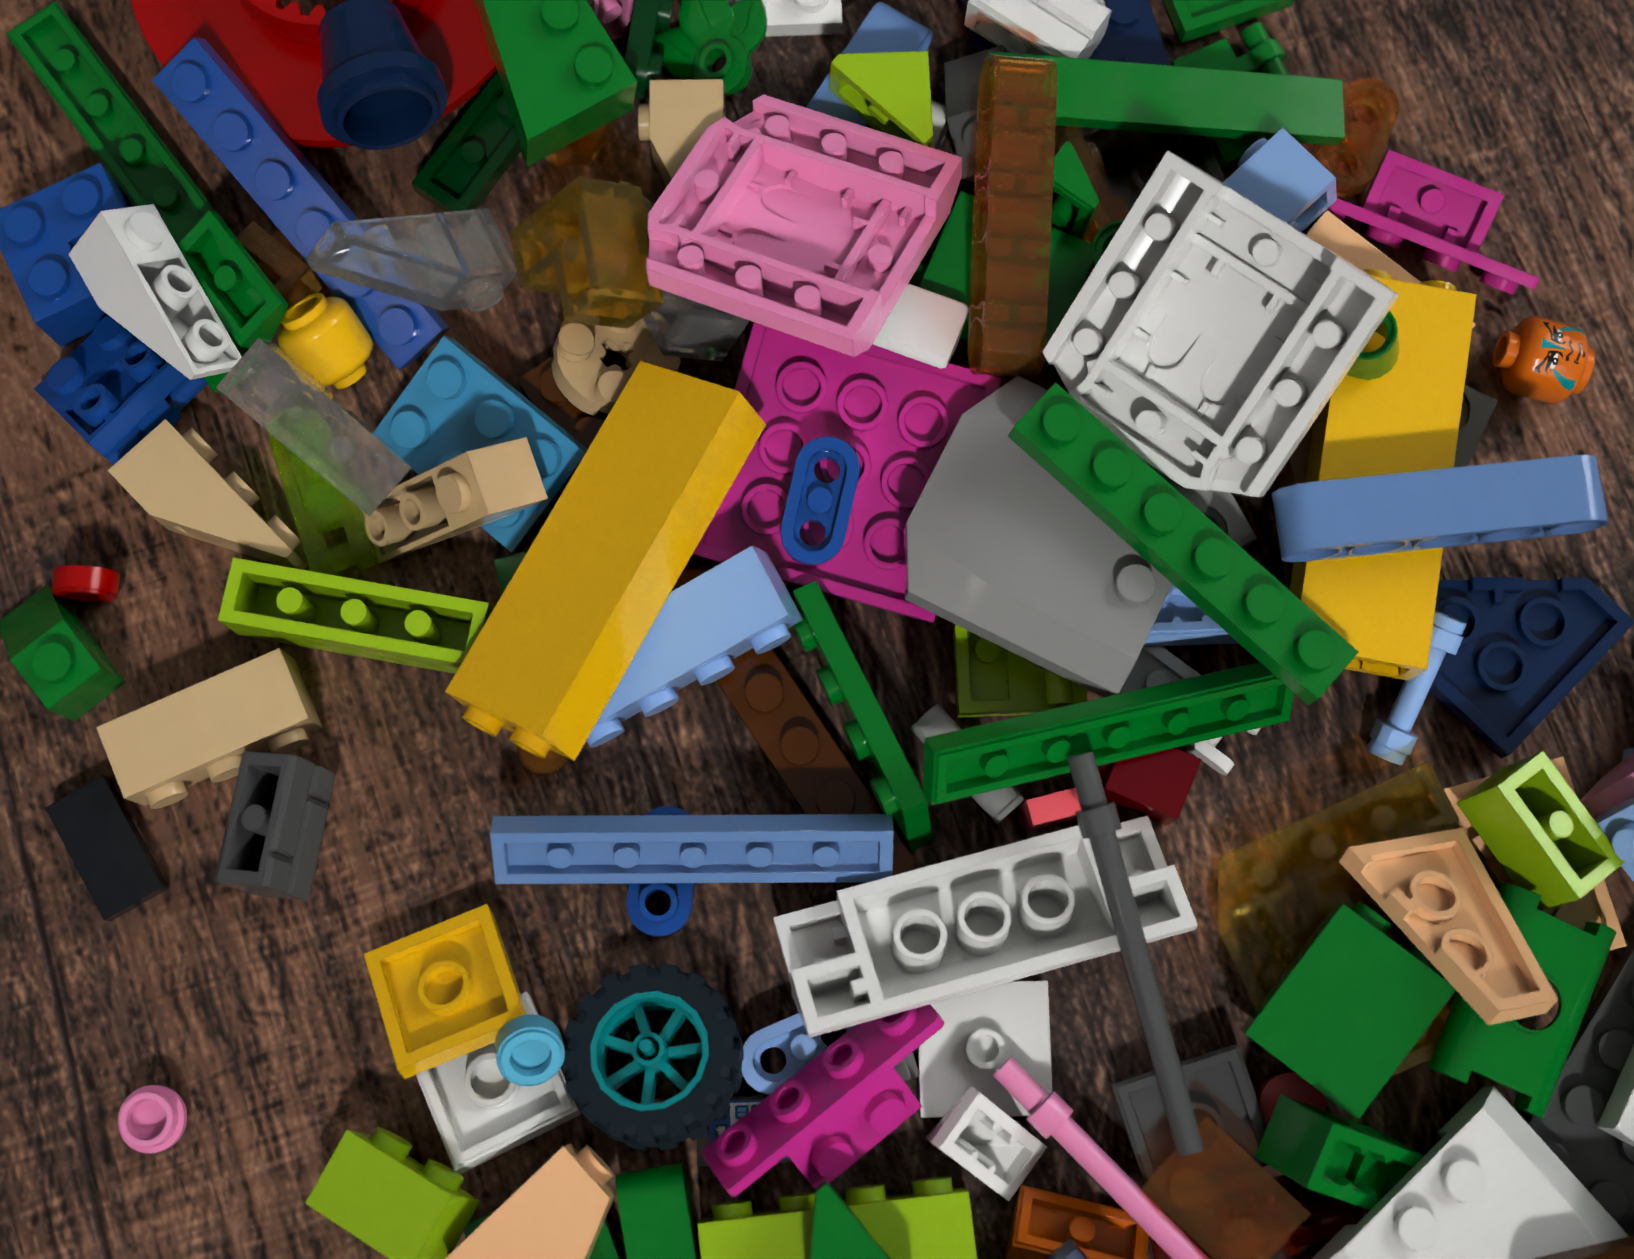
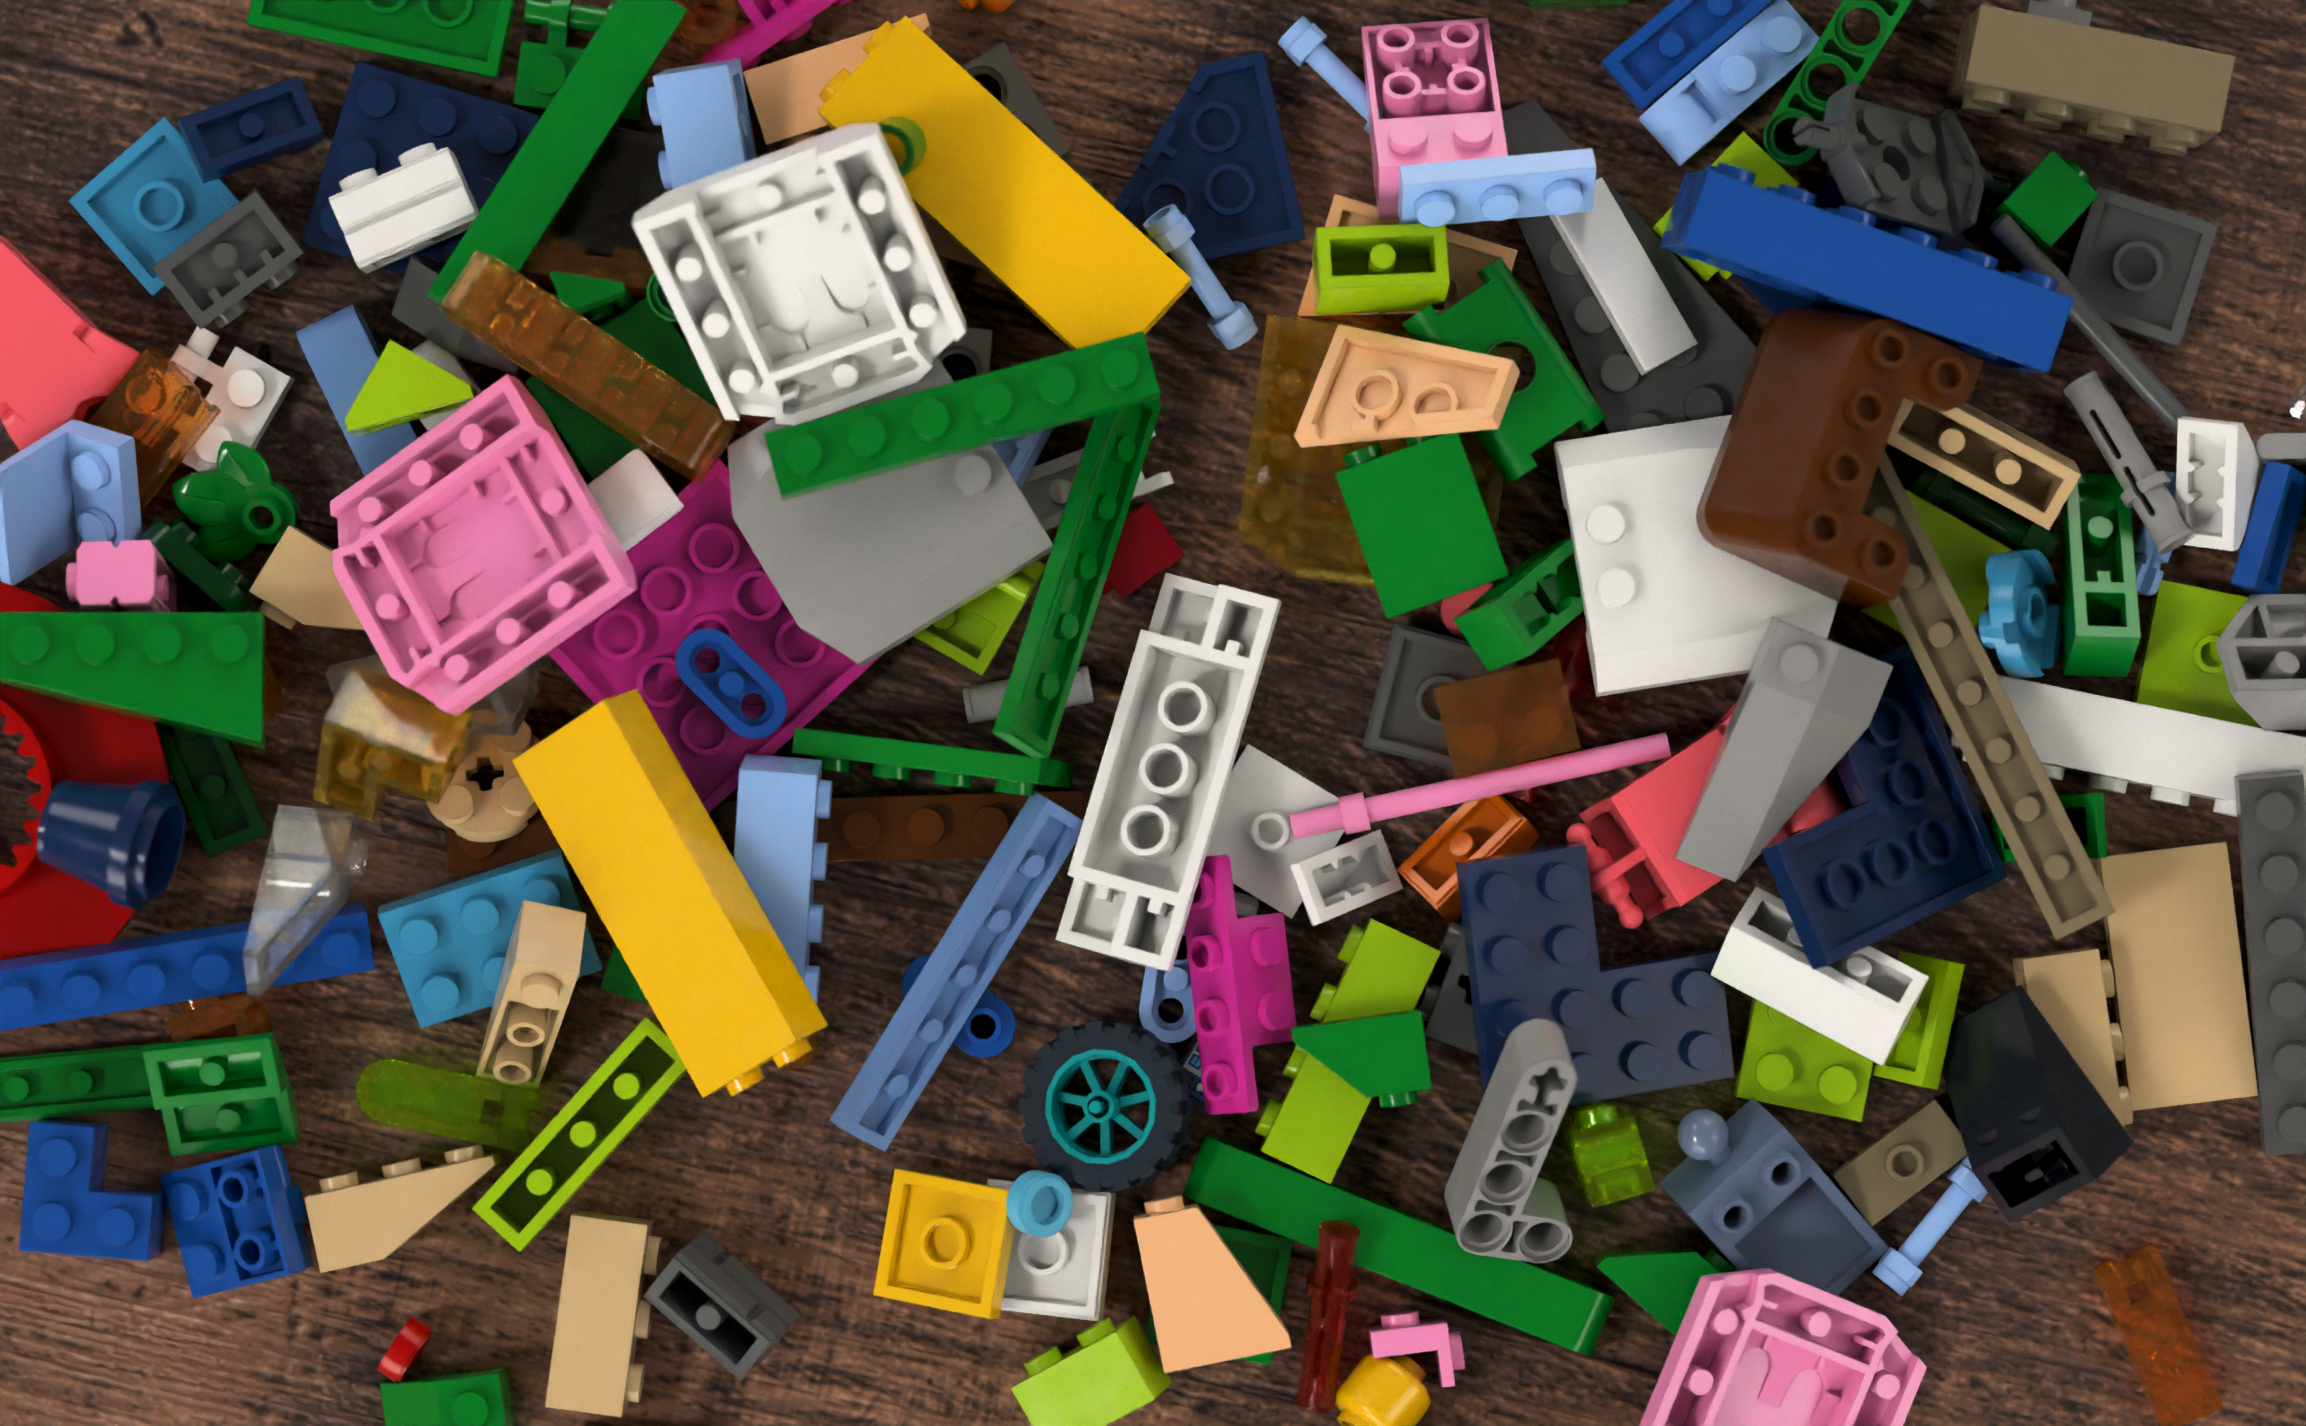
camera: 55 degrees left, 10 degrees up
(152, 291) = (188, 1142): white slope -> none
(314, 425) = (394, 1072): clear slope -> none
(326, 340) = (314, 1019): yellow head -> none
(1050, 809) = (1112, 644): coral tile -> none
(1099, 823) = (1146, 630): dark grey bar -> none
(1439, 508) = (1067, 184): medium blue beam -> none

